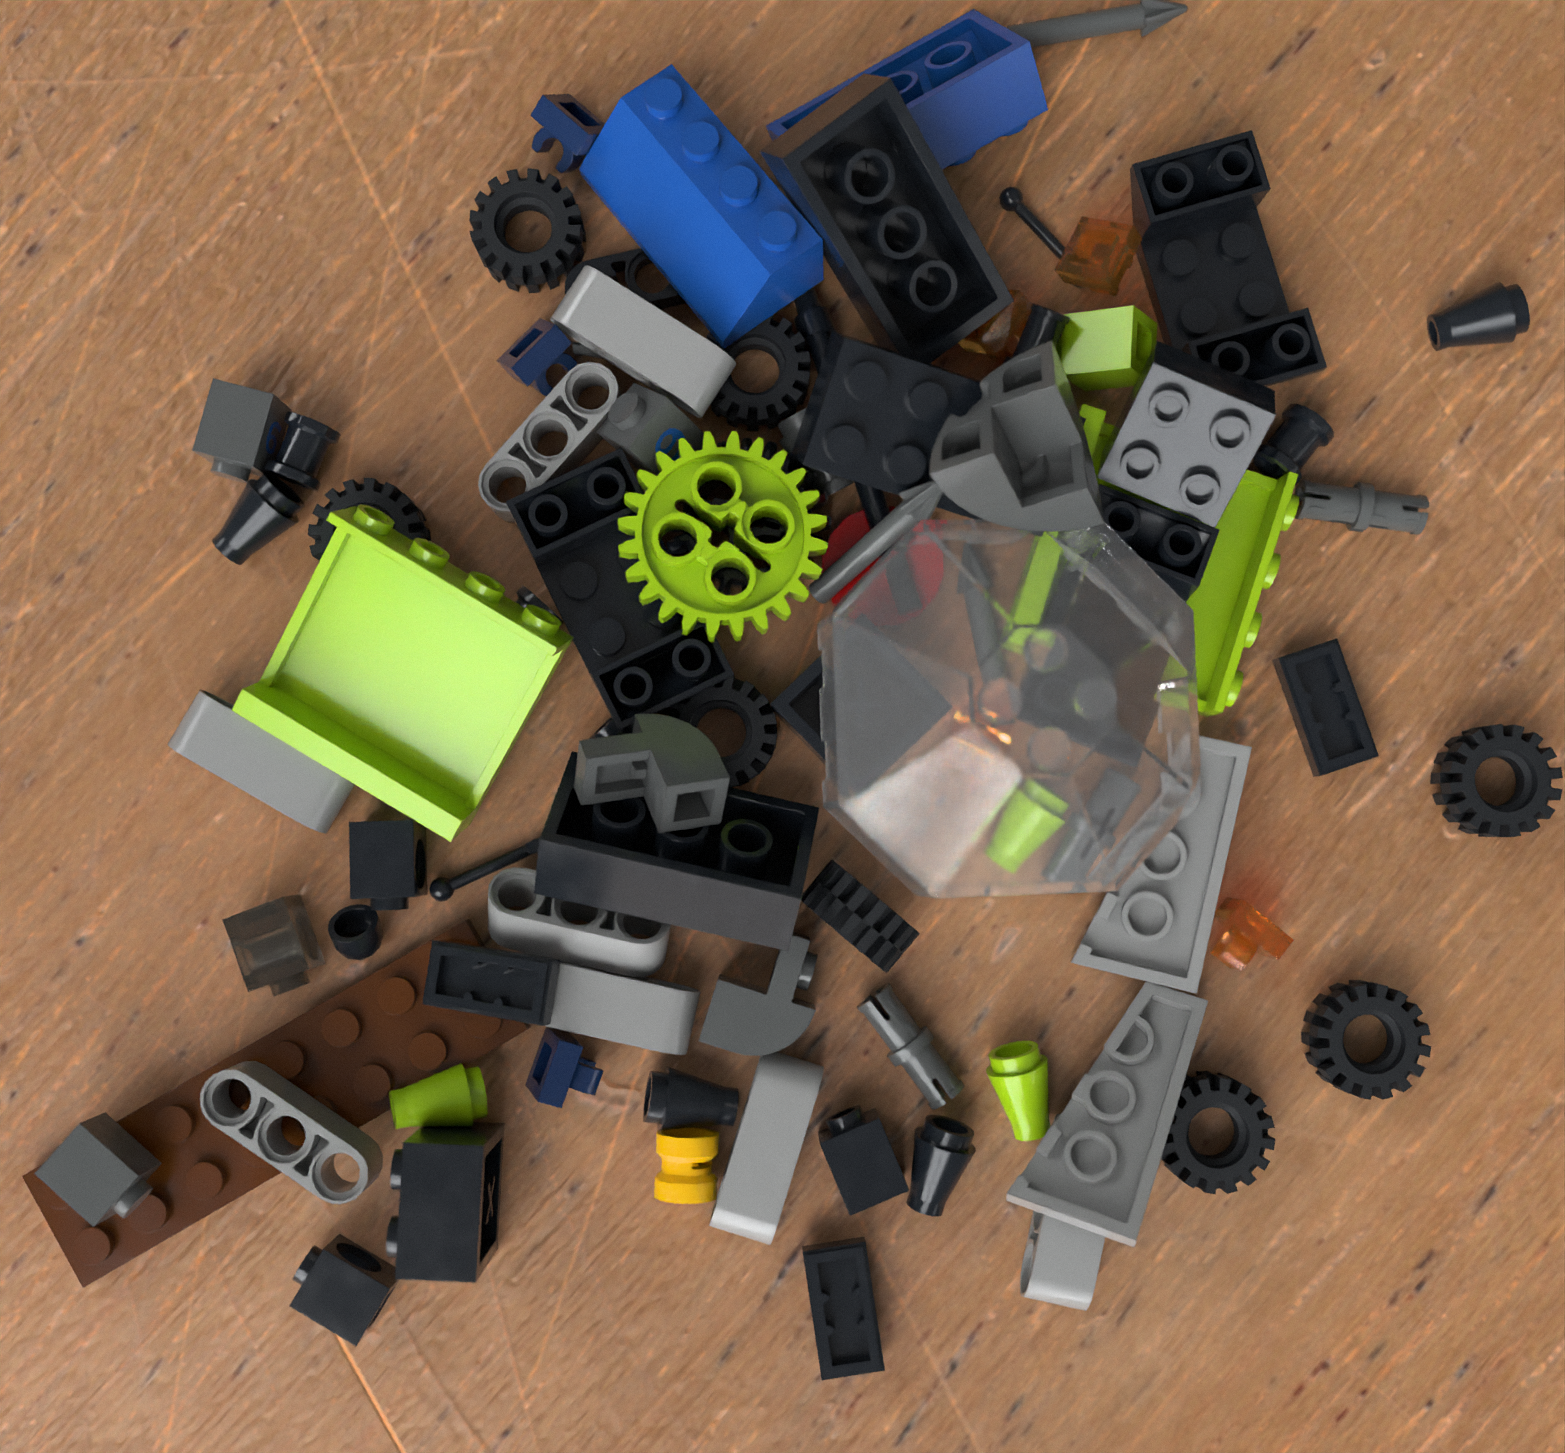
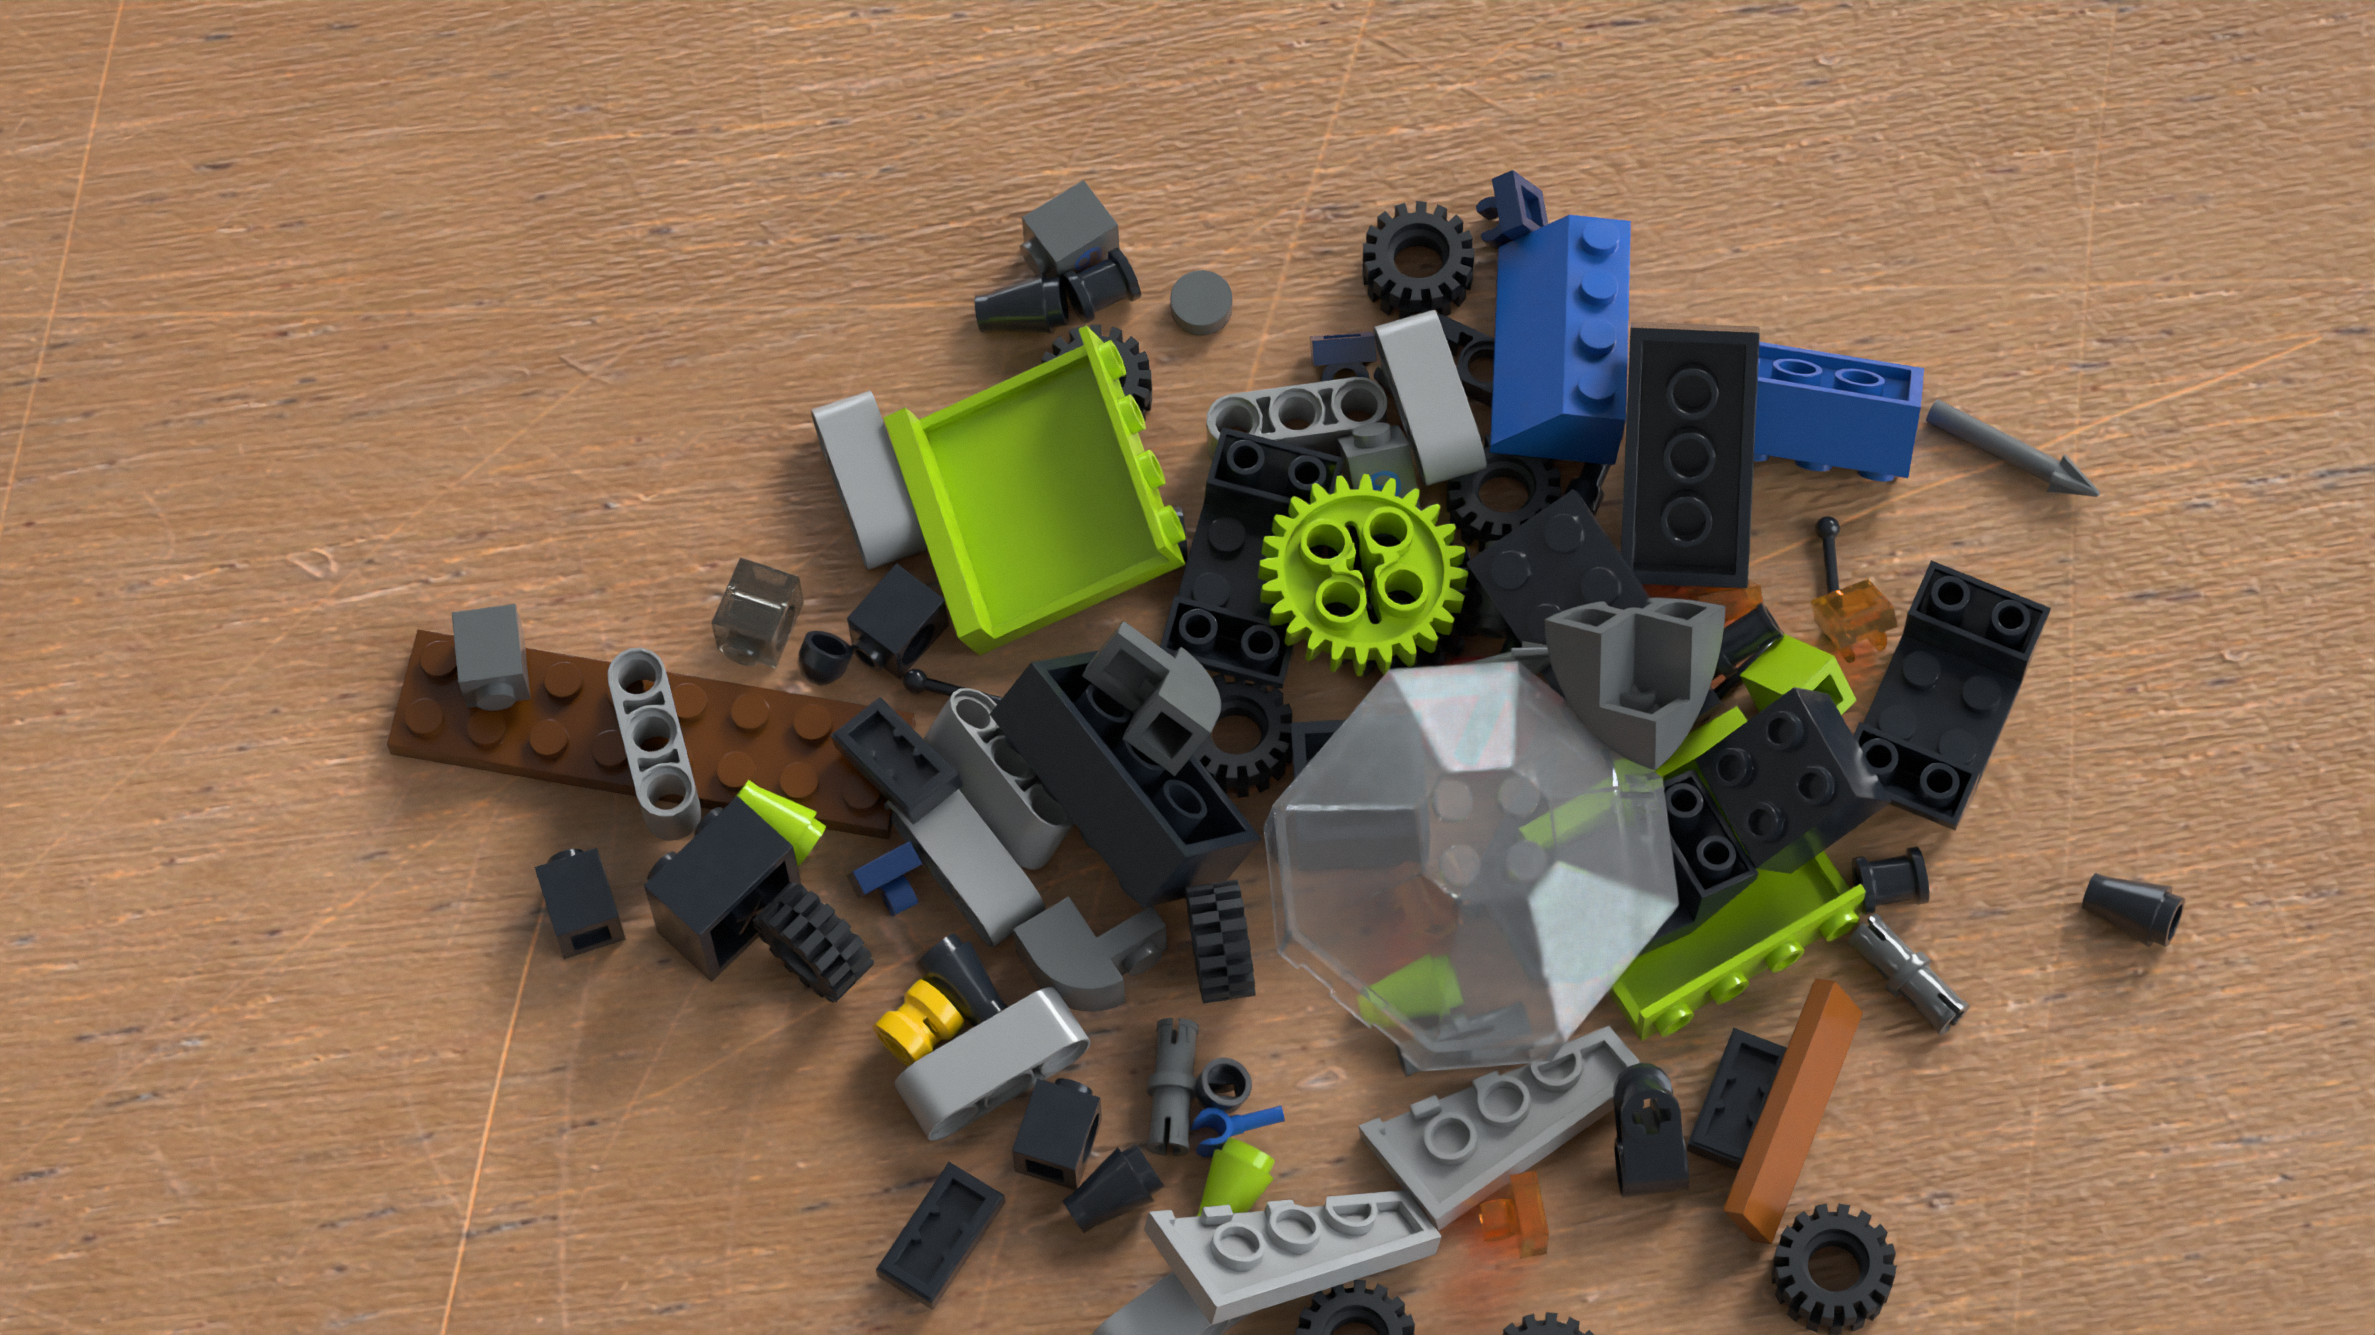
camera: 50 degrees right, 20 degrees down
(390, 400) = (1201, 302): none -> dark grey tile
(554, 1179) = (813, 942): none -> black tyre
(961, 1027) = (1223, 1076): none -> black hinge
(982, 1038) = (1232, 1125): none -> blue hand
(1292, 797) = (1649, 1139): none -> black piece
(1371, 687) = (1792, 1111): none -> dark orange tile

